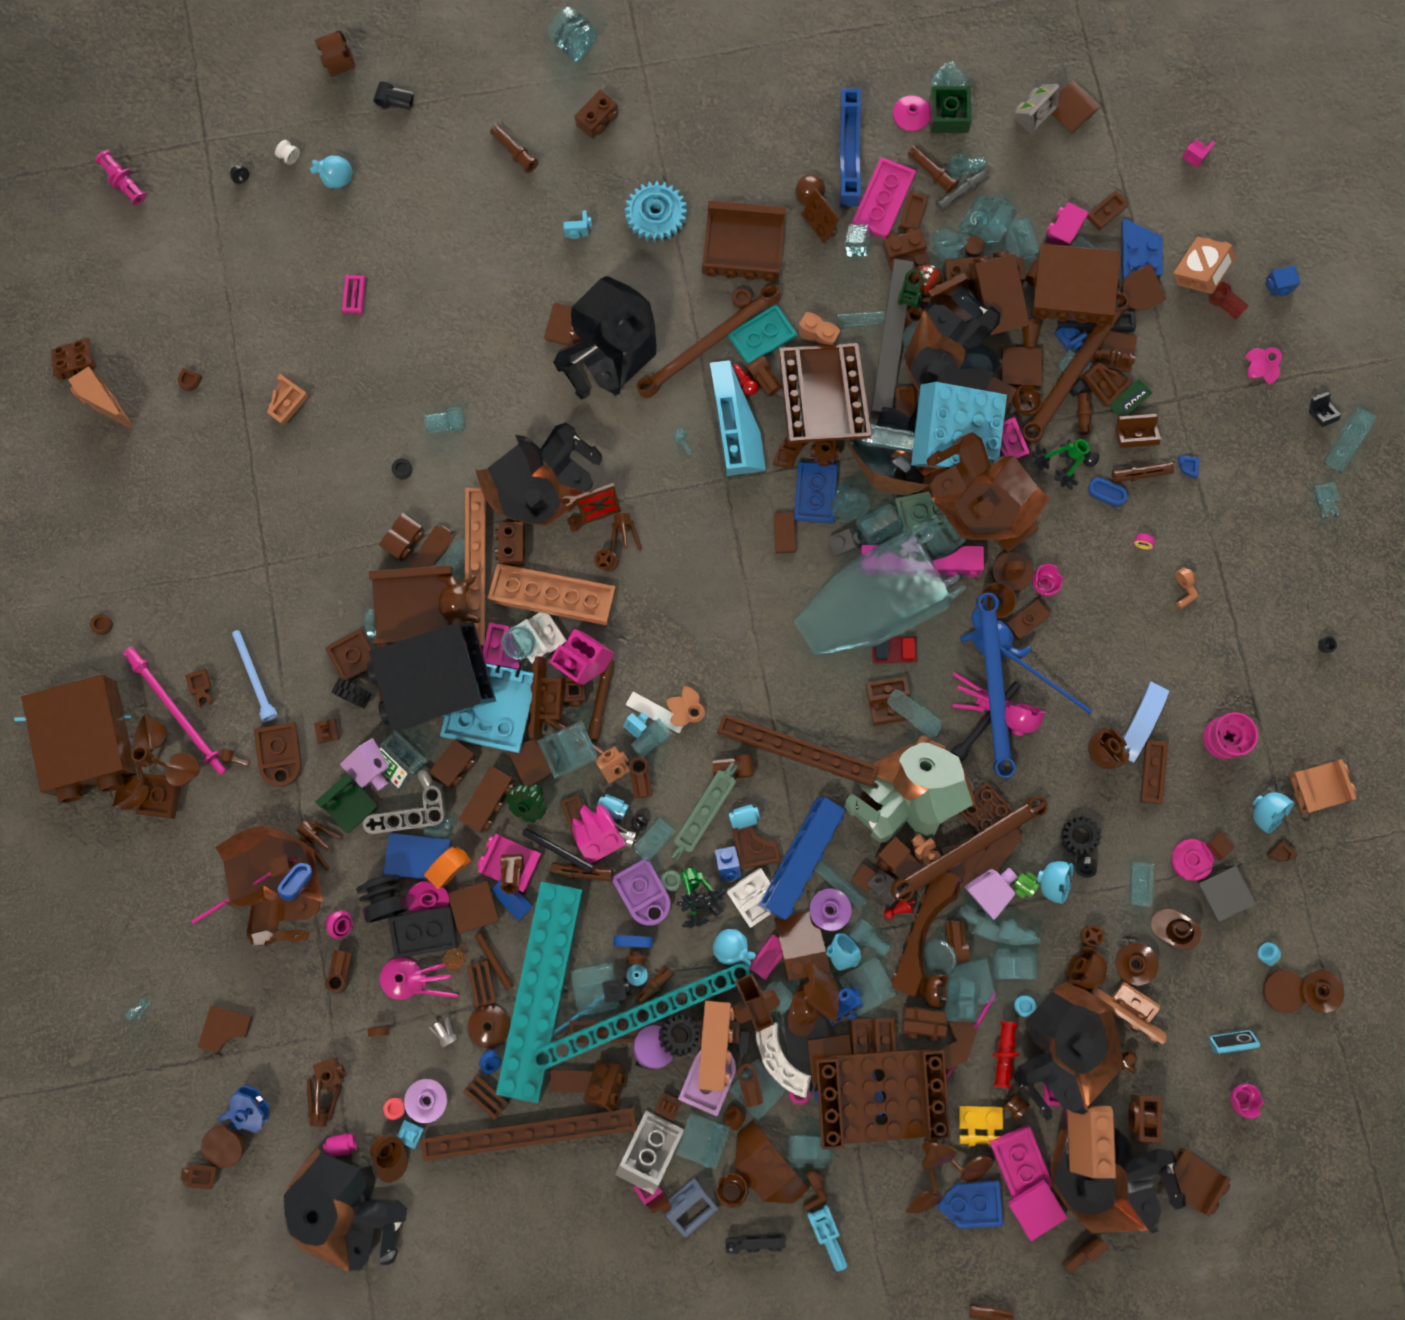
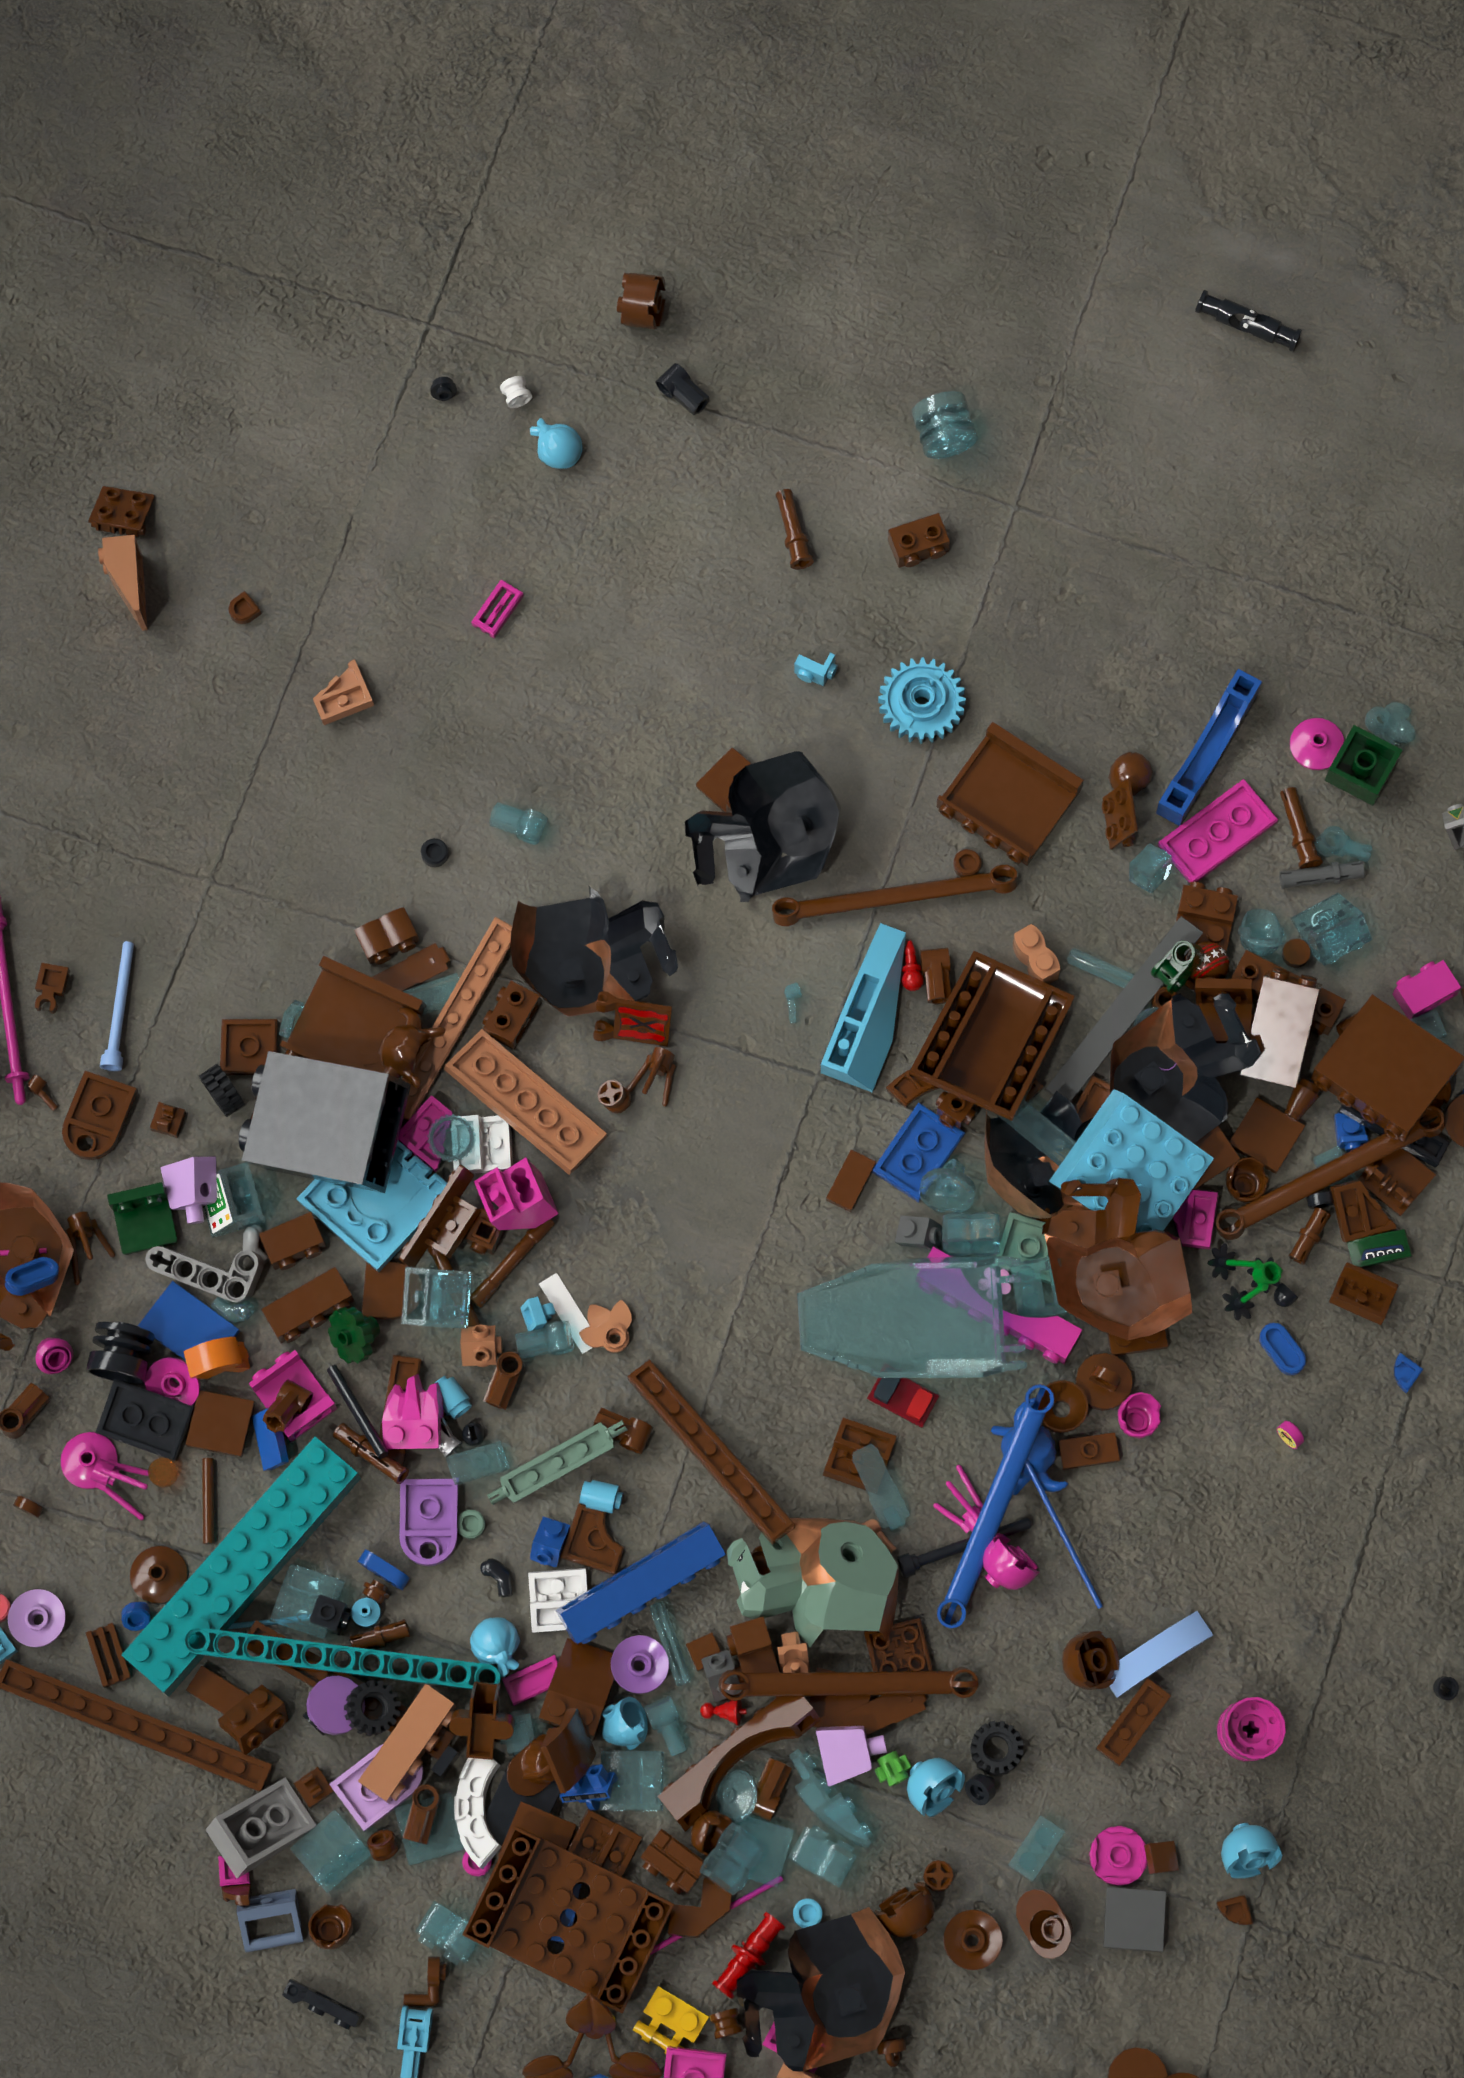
camera: 30 degrees right, 5 degrees down
(120, 178) = (298, 320): dark pink piece -> none
(445, 1039) = (100, 1559): flat silver piece -> none
(481, 982) = (168, 1517): reddish brown tile -> none
(691, 882) = (493, 1537): black plant -> none
(762, 334) = (966, 922): teal tile -> none
(766, 1168) = (386, 1926): reddish brown wedge -> none
(913, 211) = (1245, 869): reddish brown tile -> none
(1021, 239) = (1358, 976): clear light blue wing -> none
(1134, 473) = (1340, 1348): reddish brown pin -> none
(1134, 1008) = (937, 1991): nougat bracket -> none
(1186, 579) = (1315, 1509): nougat plate -> none
(1269, 953) = (1144, 2021): medium azure tile -> none
(1322, 786) = (1333, 1858): nougat panel -> none

